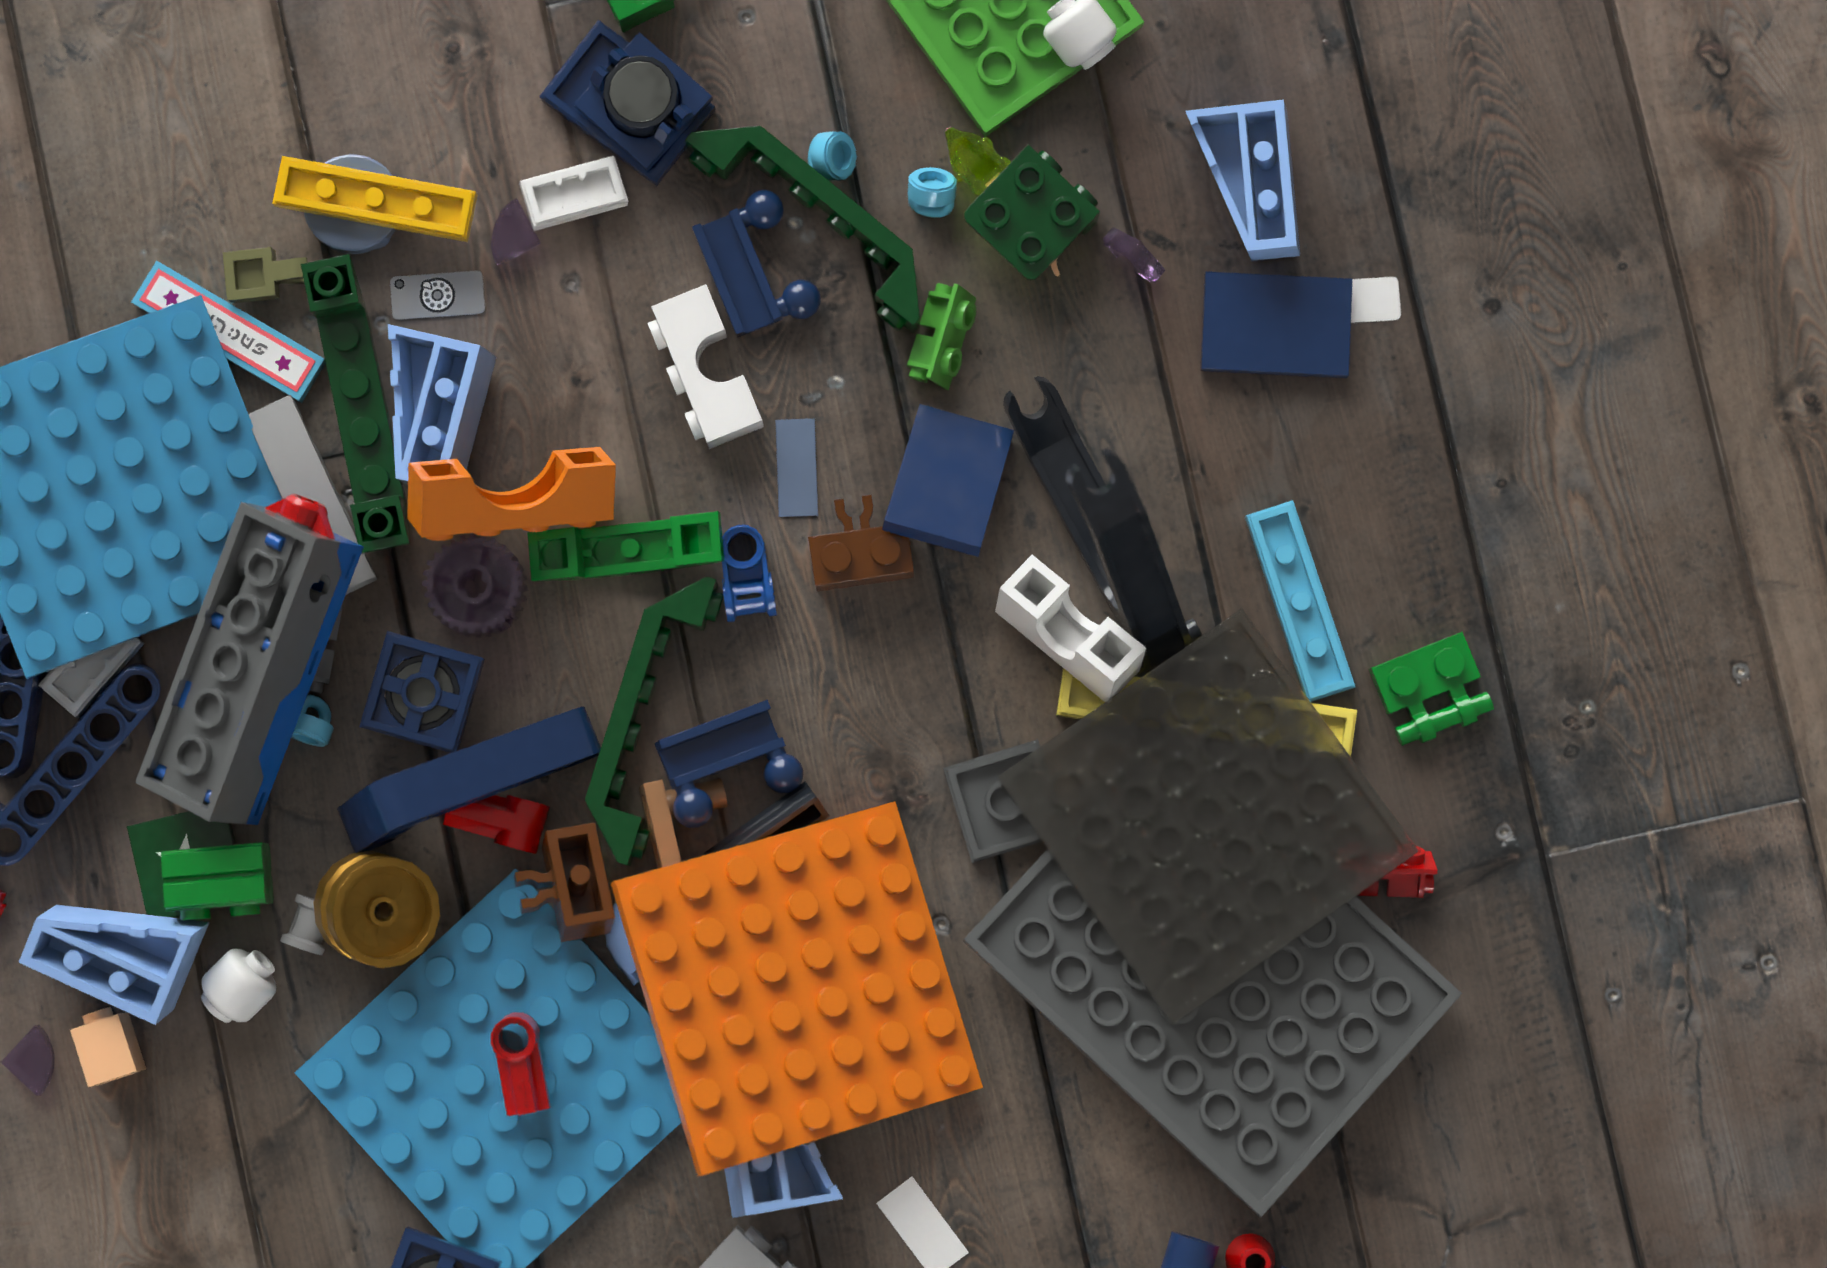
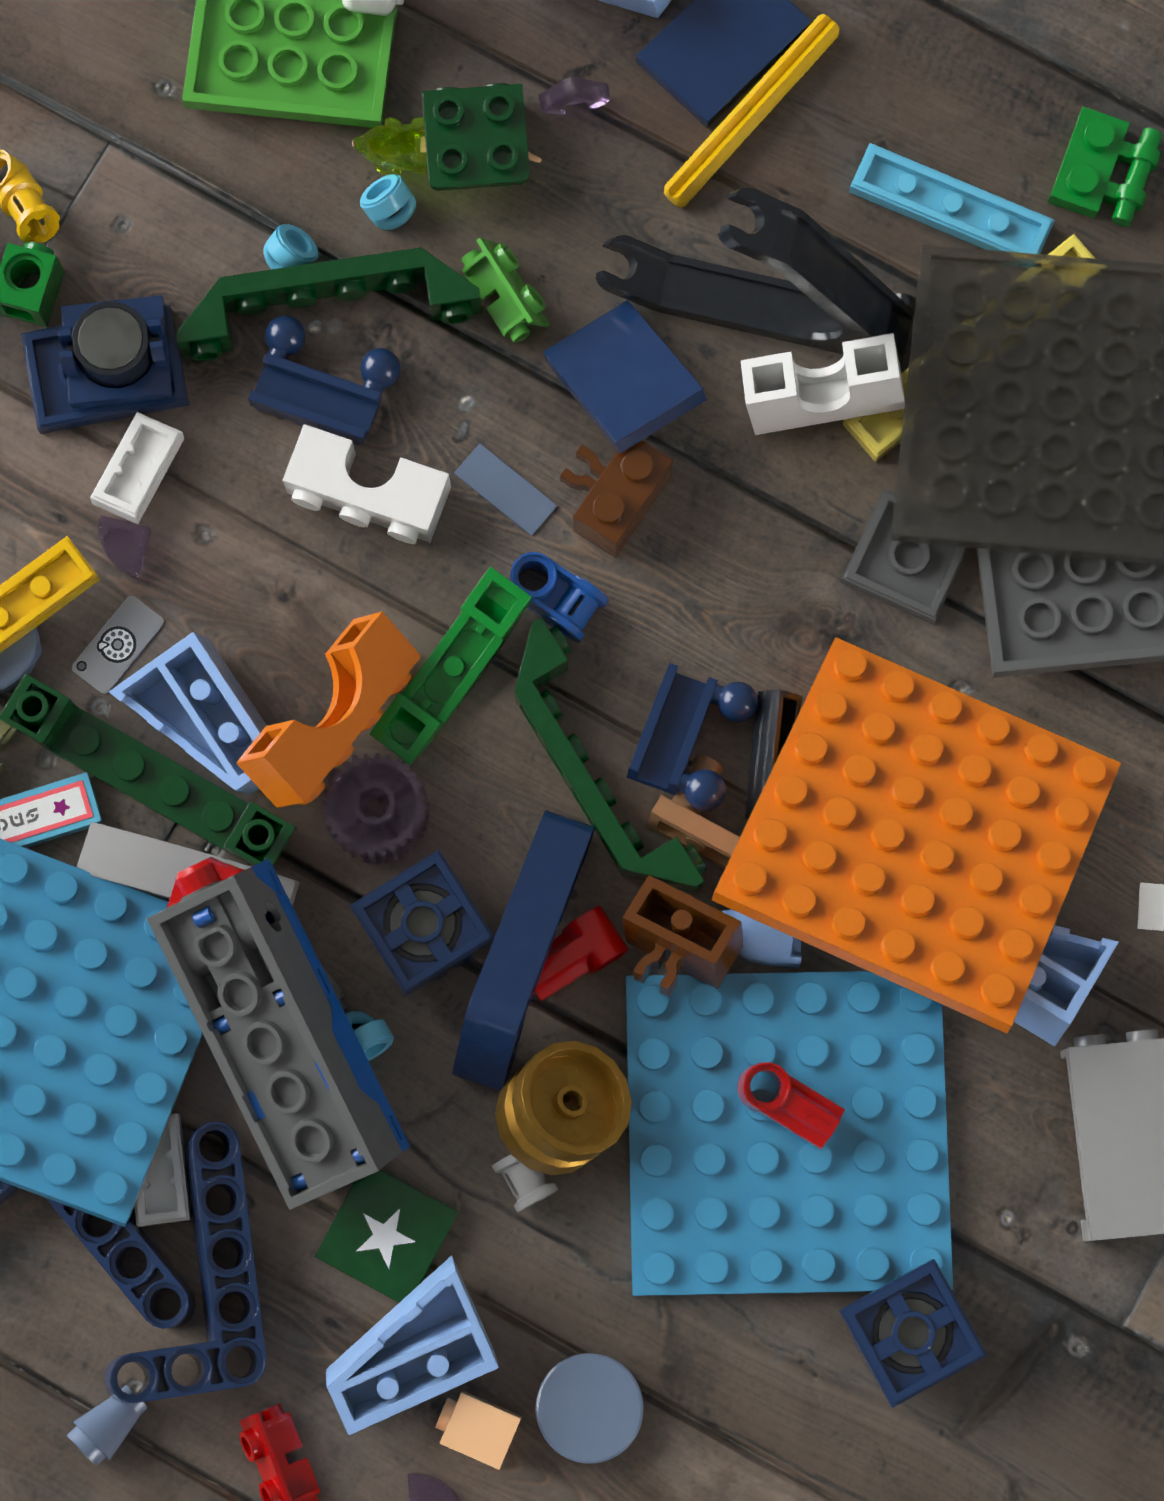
camera: 45 degrees left, 5 degrees down
(190, 1111) = (589, 1408): none -> sand blue tile
(217, 878) = (424, 1216): green brick -> none
(238, 985) = (523, 1277): white head -> none
(1241, 392) = (751, 110): none -> yellow axle

